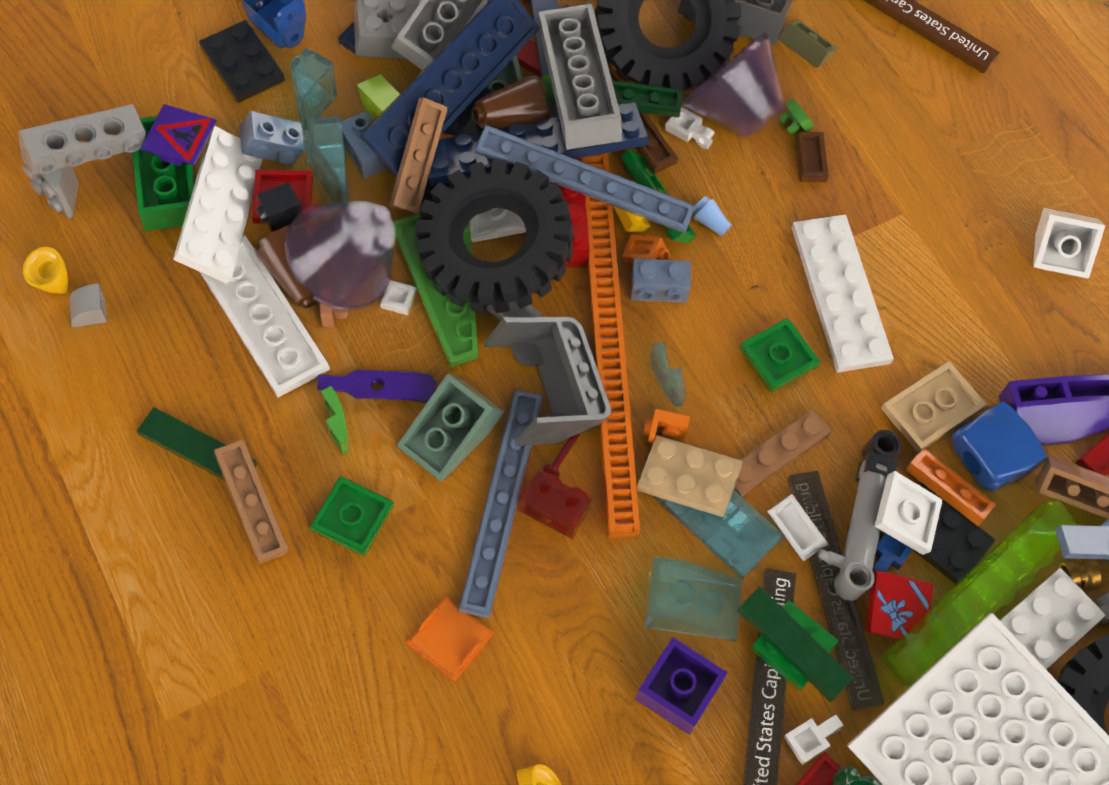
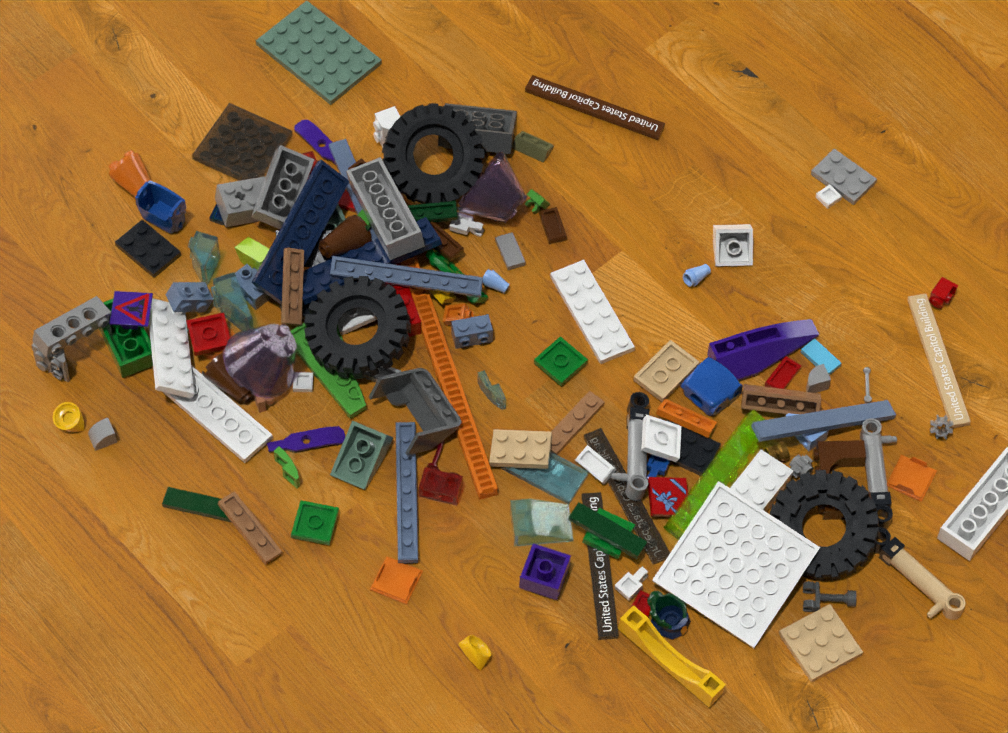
camera: 10 degrees left, 5 degrees down
(278, 206) = (212, 341): black brick -> none
(668, 423) = (498, 420): orange bracket -> none
(743, 178) = (510, 251): none -> light grey tile
(1004, 273) = (696, 275): none -> light blue cone

